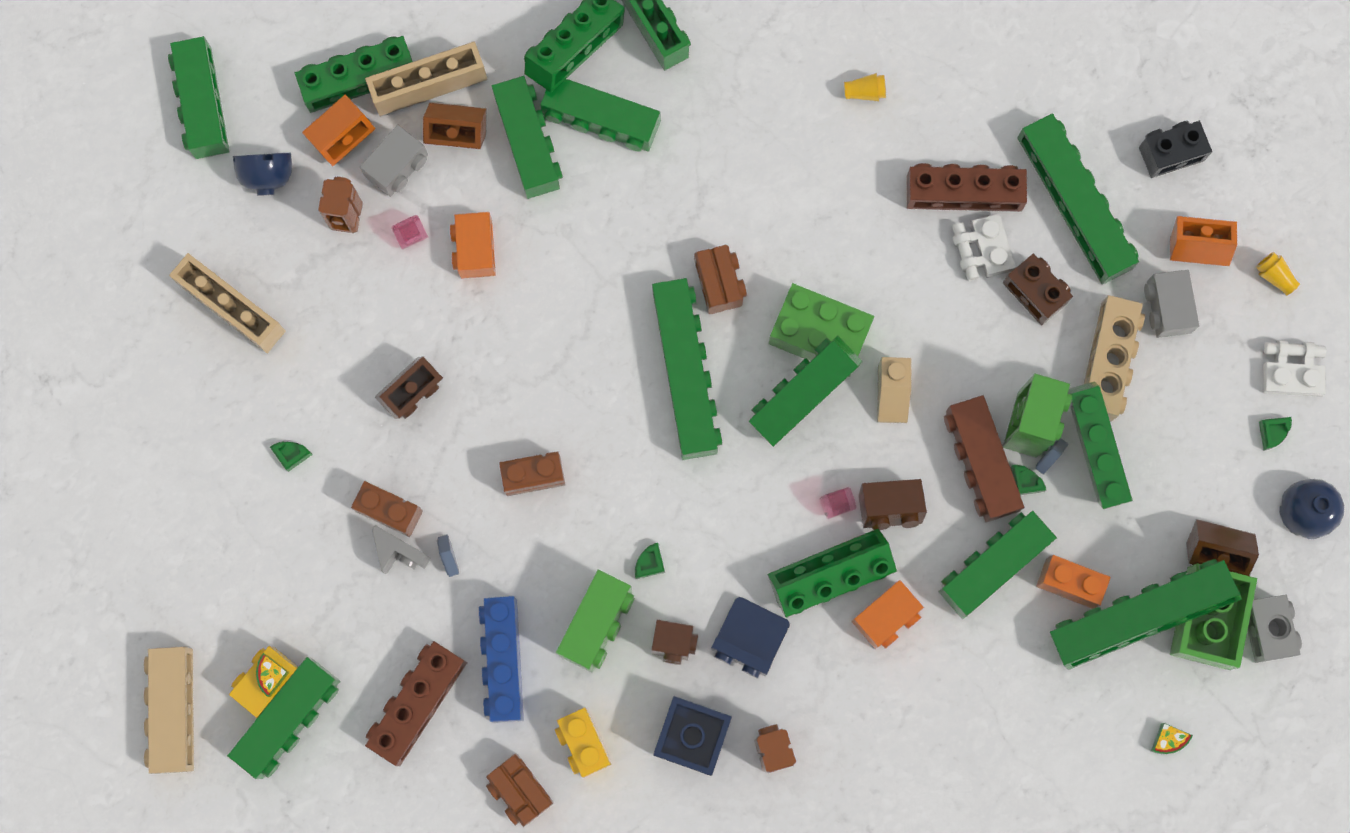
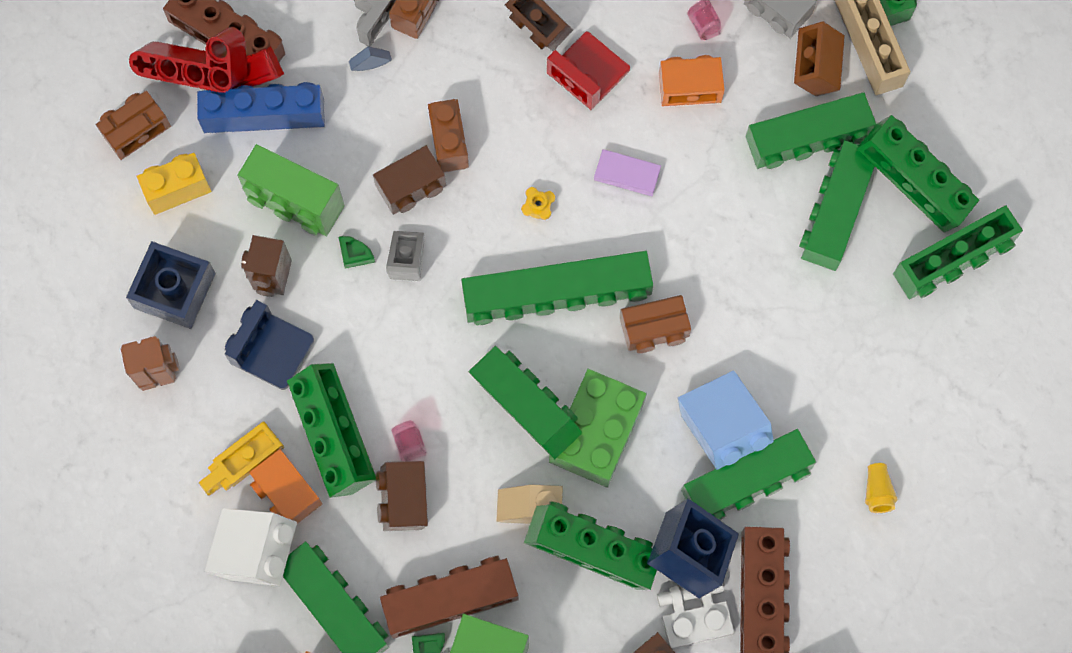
camera: 90 degrees right, 5 degrees down
(460, 342) = (587, 69): none -> red bracket
(462, 730) = (215, 69): none -> red beam
(465, 667) = (261, 68): none -> red tile
(566, 306) = (627, 172): none -> lavender tile
(580, 508) = (410, 180): none -> reddish brown brick
(603, 396) = (531, 209): none -> yellow plate
(656, 510) = (405, 256): none -> light grey slope
(813, 214) = (725, 420): none -> light blue brick
(859, 658) = (241, 458): none -> yellow hinge
(861, 199) = (752, 475): none -> green brick
(934, 242) = (693, 548): none -> dark blue brick
(936, 330) = (591, 546): none -> green brick
(950, 639) = (251, 546): none -> white brick

